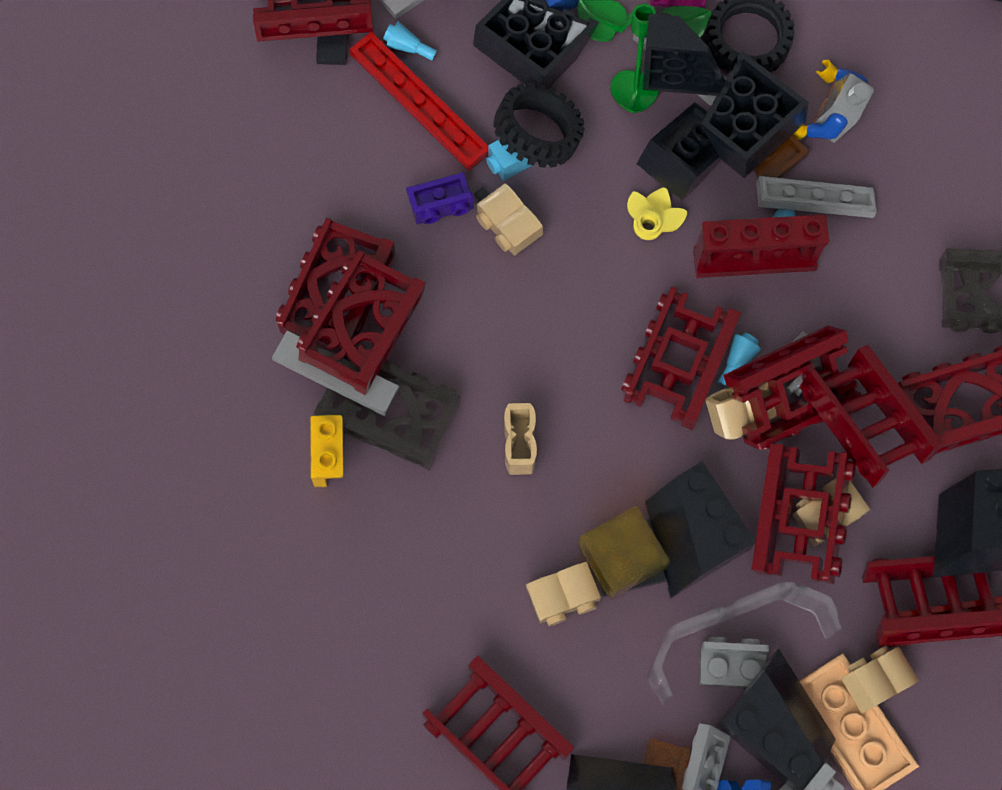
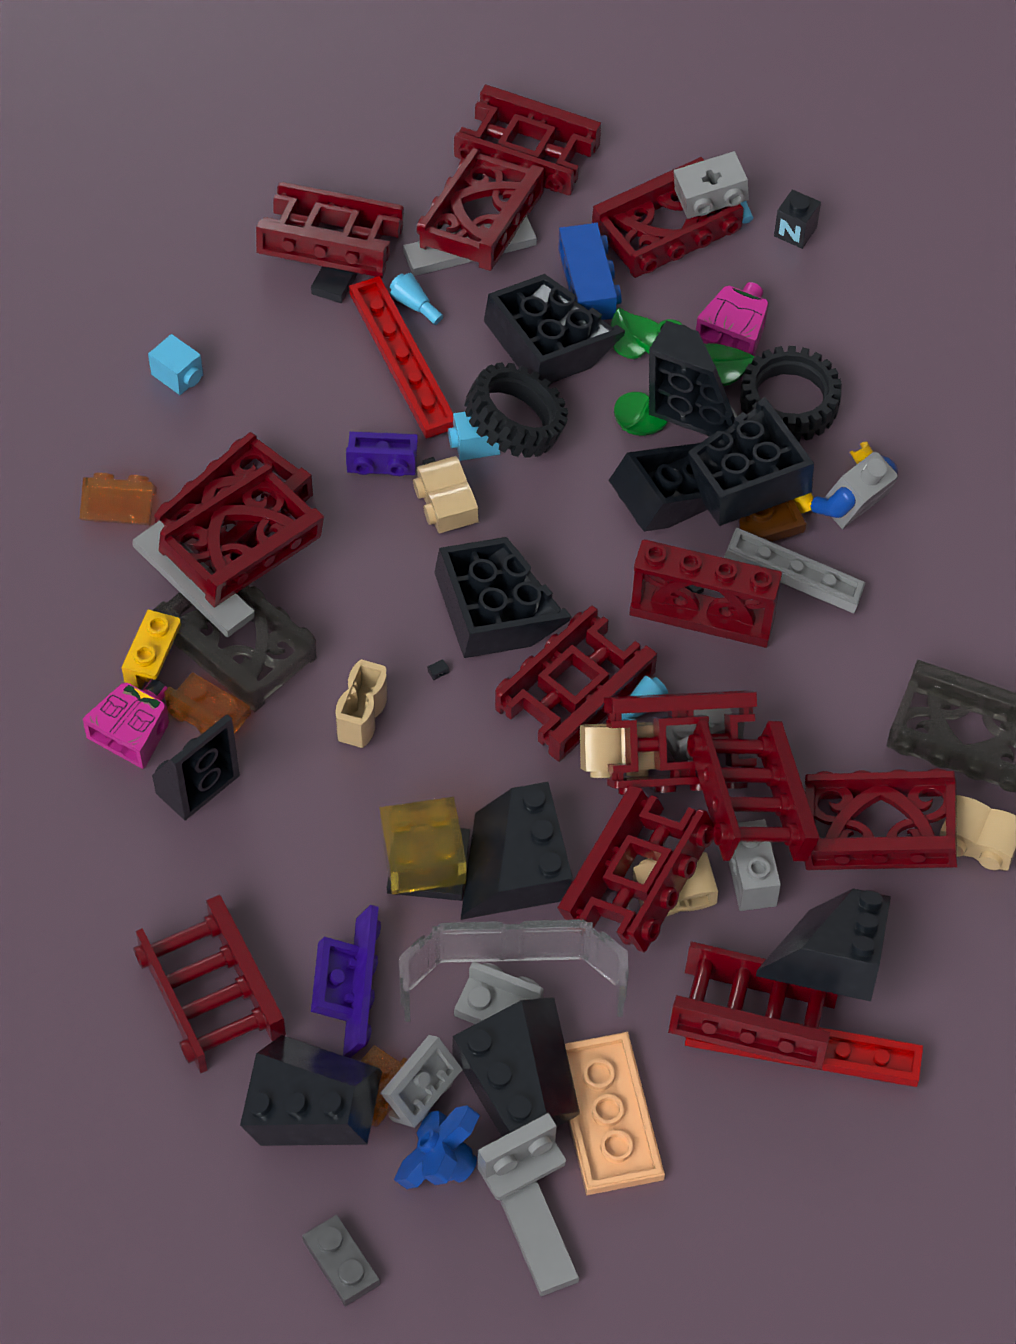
camera: 20 degrees right, 15 degrees down
(233, 171) = (175, 364): none -> medium azure brick
(237, 315) = (117, 500): none -> clear orange bracket
(334, 518) = (130, 721): none -> dark pink torso
(390, 482) = (204, 704): none -> clear orange bracket
(409, 546) = (199, 769): none -> black slope
(563, 381) = (438, 669): none -> black piece
(563, 593) = (342, 870): tan brick -> none
(588, 304) = (495, 598): none -> black wedge
(606, 688) = (345, 980): none -> dark purple bracket
(656, 211) = (611, 535): light yellow plate -> none
(880, 678) = (655, 1065): tan brick -> none
(896, 485) = (754, 873): none -> light grey brick

